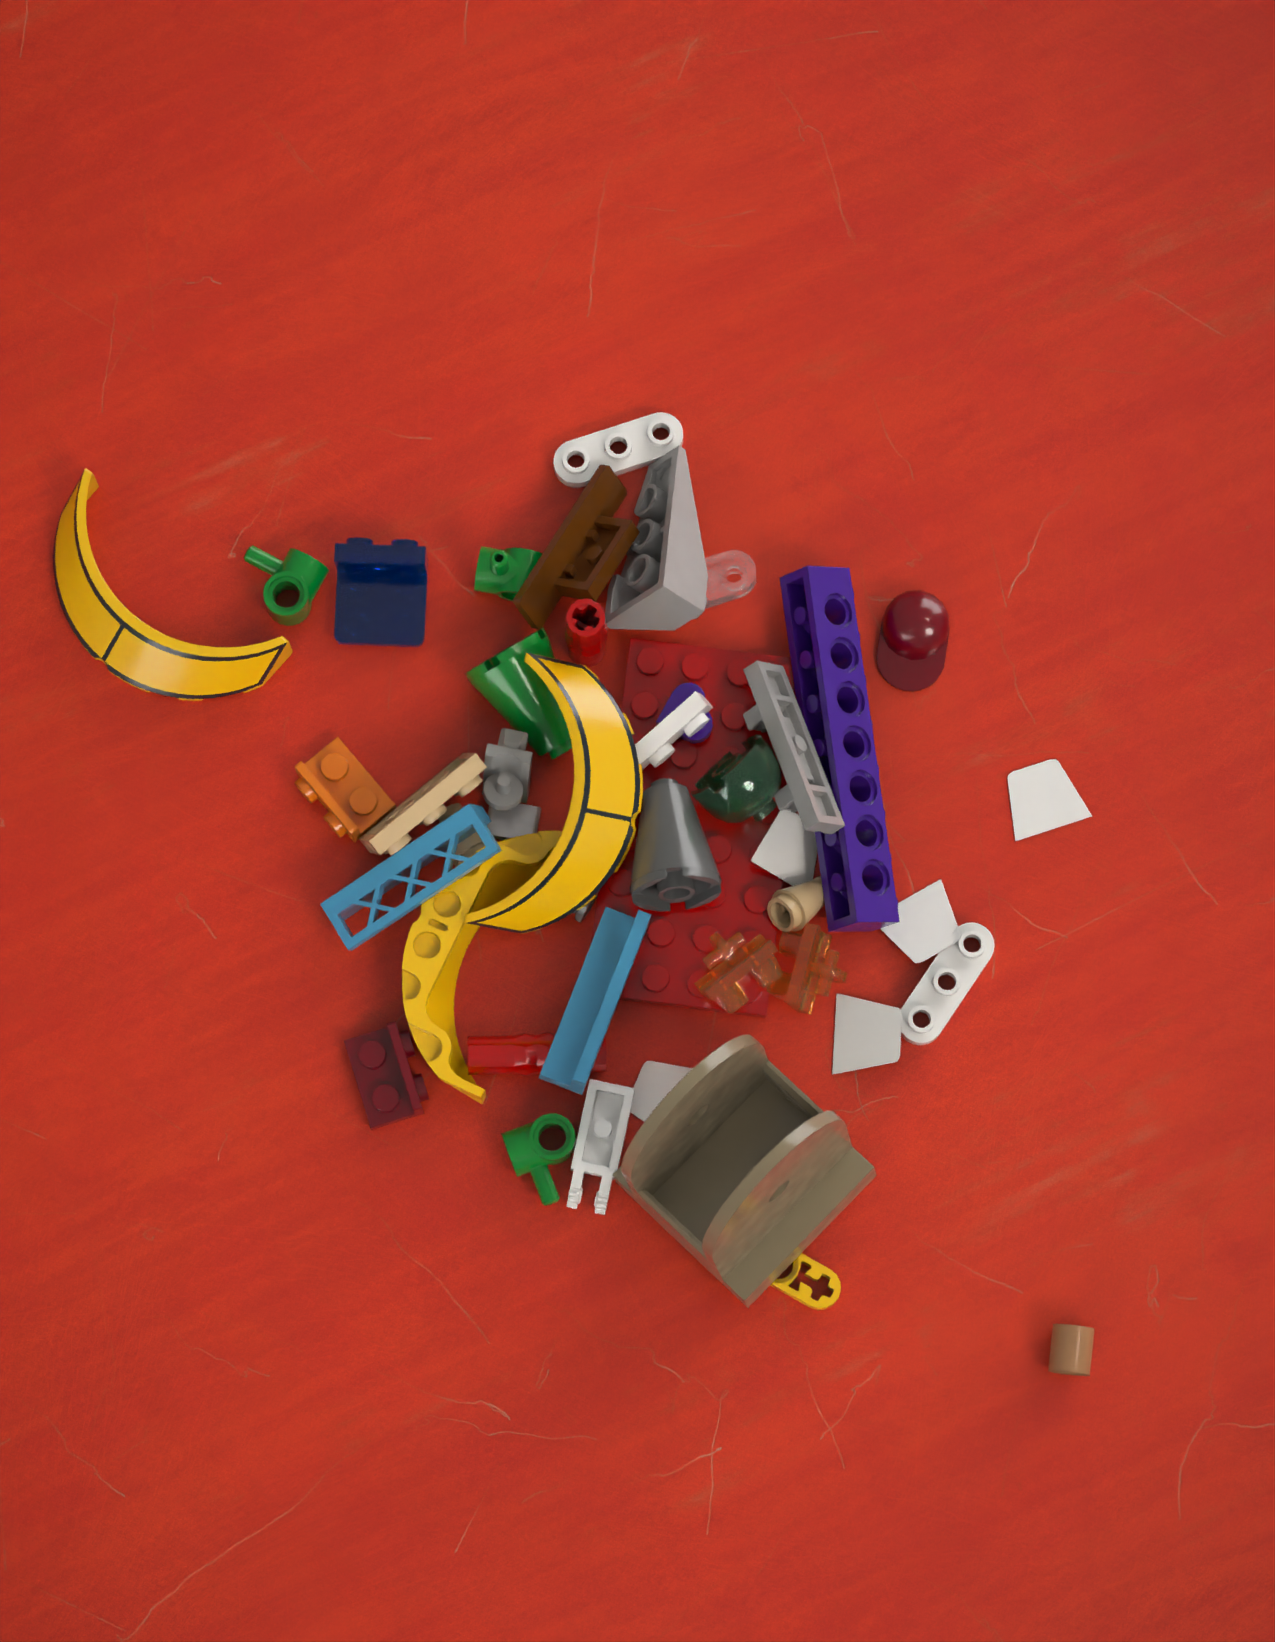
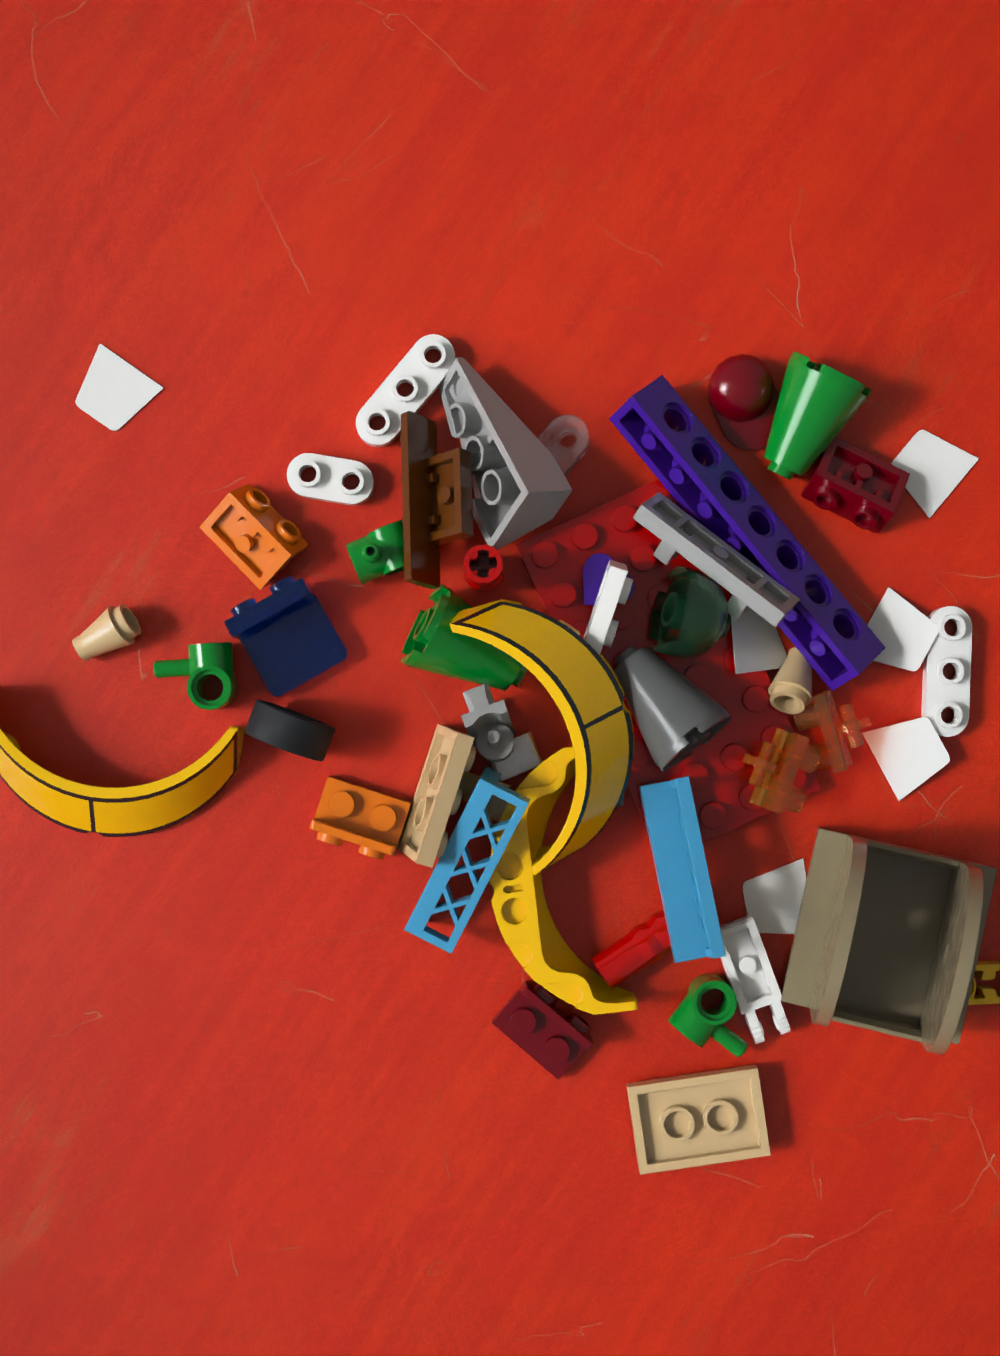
camera: 25 degrees left, 10 degrees up
(227, 497) = (109, 632): none -> tan cone
(331, 672) = (289, 730): none -> black tyre
(365, 297) = (114, 390): none -> white sticker
(407, 490) = (253, 534): none -> orange bracket
(472, 1240) = (698, 1119): none -> tan plate
(503, 485) = (329, 479): none -> white plate
(957, 680) = (810, 414): none -> green cone
(963, 768) = (856, 485): none -> dark red bracket

